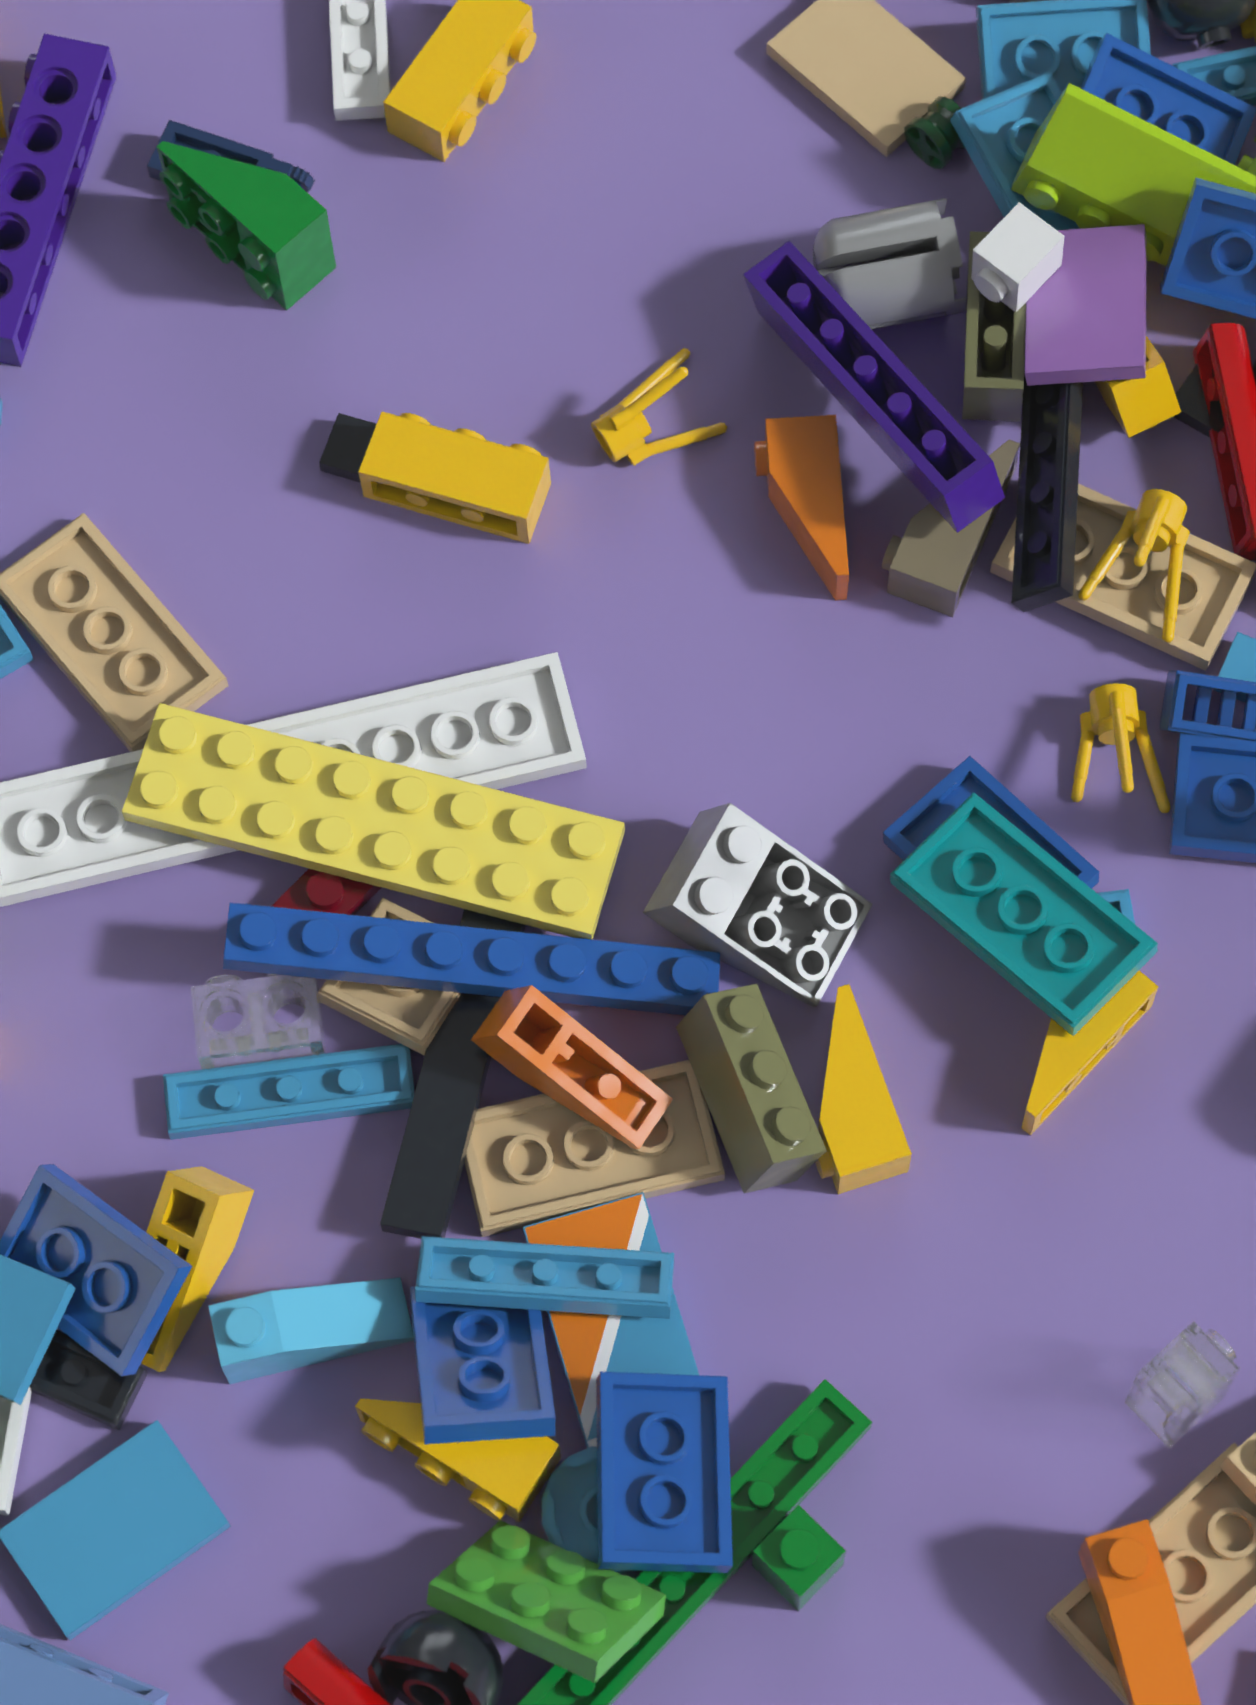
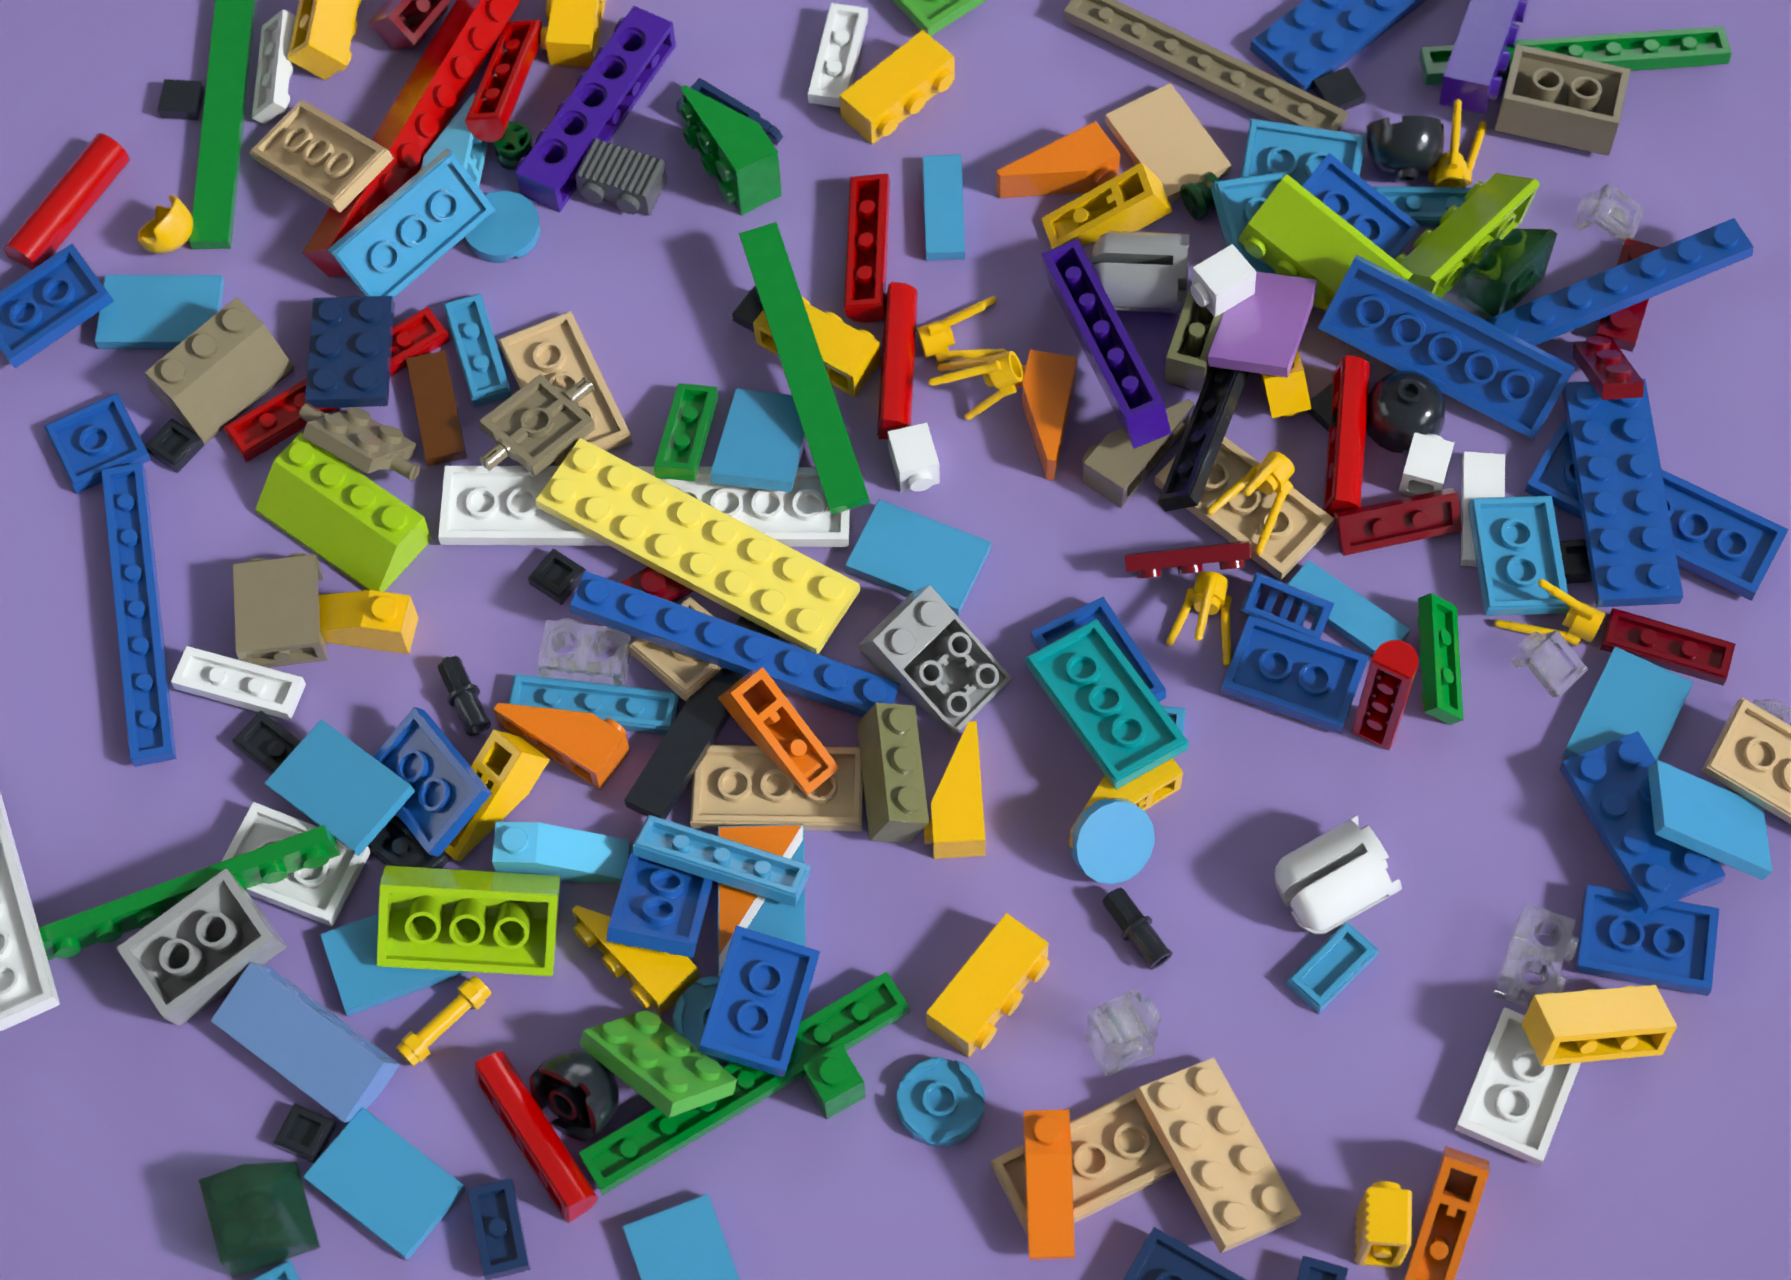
camera: 15 degrees right, 5 degrees down
(90, 697) = (537, 424): none -> dark tan plate
(98, 296) = (621, 177): none -> dark grey brick
(98, 1124) = (463, 696): none -> black axle
(180, 913) = (556, 576): none -> black tile
(183, 1662) = (471, 994): none -> yellow bar
(209, 1458) = (467, 920): none -> lime slope
(277, 1151) = (571, 738): none -> orange slope
(308, 657) = (686, 432): none -> green plate
(421, 642) = (760, 442): none -> dark azure tile
(453, 522) = (804, 369): none -> green tile
(486, 318) = (867, 247): none -> red brick
(575, 233) = (943, 207): none -> dark azure tile
(577, 479) = (897, 358): none -> red brick
(643, 616) = (914, 458): none -> white brick
(688, 756) = (914, 551): none -> dark azure tile
(732, 134) = (1063, 167): none -> orange slope
(733, 460) = (997, 370): none -> yellow plant
(812, 185) = (1120, 204): none -> yellow slope
(950, 1545) = (940, 1101): none -> dark azure tile
(974, 1363) = (988, 986): none -> yellow brick
(1075, 671) = (1189, 558): none -> dark red plate
(1087, 1109) = (1112, 840): none -> tile
(1151, 1224) = (1136, 928): none -> black axle

